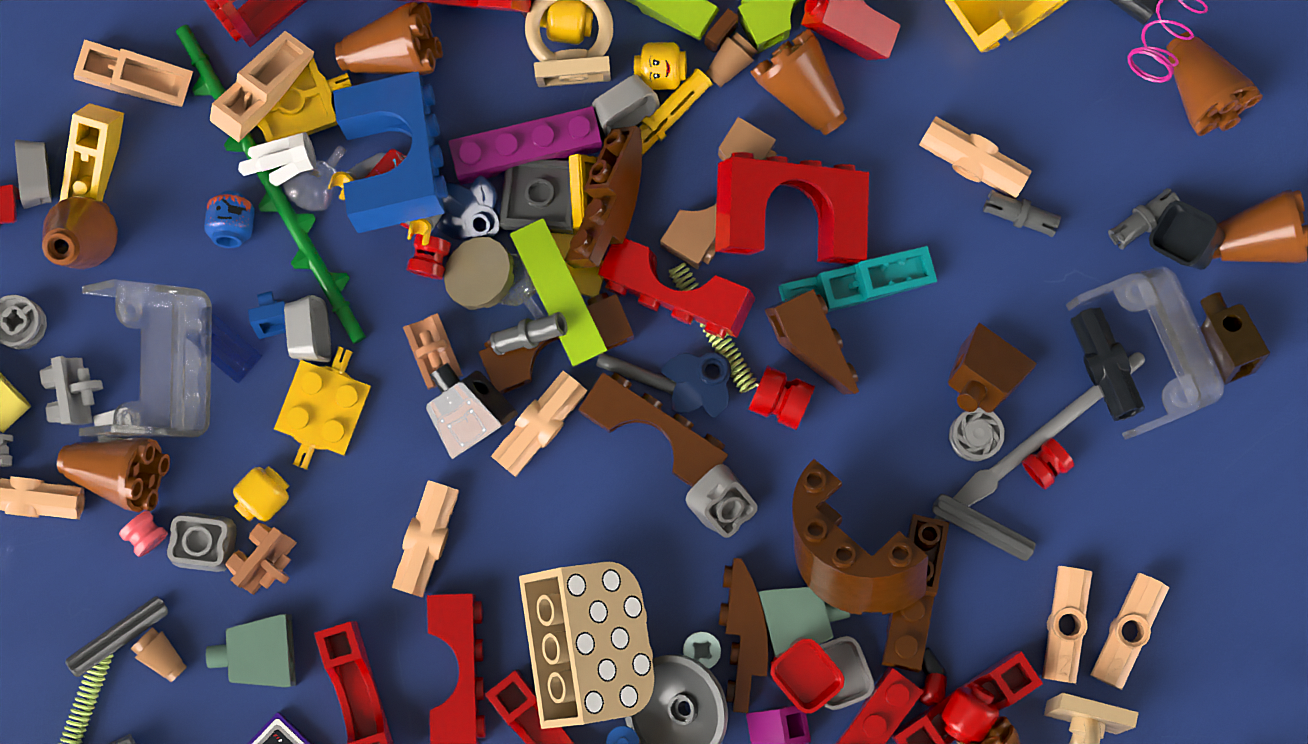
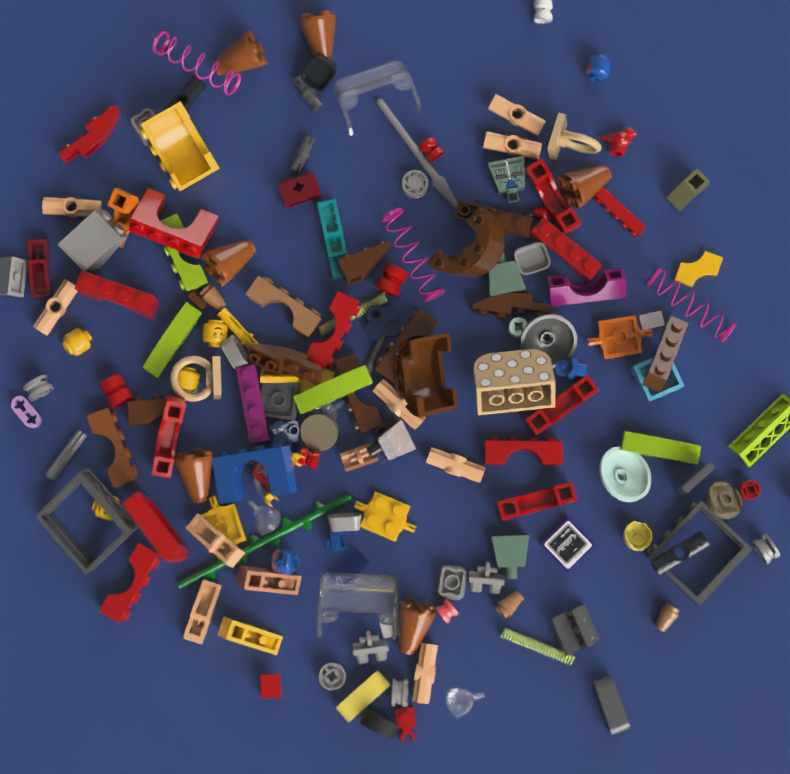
camera: 90 degrees left, 0 degrees up
(33, 173) = (253, 665): light grey piece -> none
(79, 233) = (287, 641): dark orange cone -> none
(116, 636) = (499, 625): dark grey axle -> none
(193, 181) = (267, 581): none -> nougat slope
(209, 607) = (486, 575): none -> light grey hips
(261, 494) = (428, 549): yellow head -> none
(265, 562) = (465, 547): nougat hips -> none
(292, 151) = (253, 533): white rock -> none
(528, 333) = (354, 404): dark grey pin -> none
(589, 464) = (421, 375): none -> reddish brown cylinder
(721, 501) = (444, 312): light grey piece -> none
(807, 675) = (533, 273): red piece -> none
(836, 193) = (288, 246): red arch -> none
(911, 394) = (431, 295): none -> dark pink piece
(947, 231) = (292, 197): none -> dark red brick
(970, 714) = (555, 194): red head -> none
(975, 158) = (272, 175): light nougat piece -> none
(983, 527) = (462, 183): dark grey axle -> none
(987, 370) = (383, 176): reddish brown torso -> none
(1002, 619) = (508, 177): none -> sand green torso
(1107, 364) = (382, 116): black piece -> none
(1232, 339) = (379, 53): dark brown torso -> none

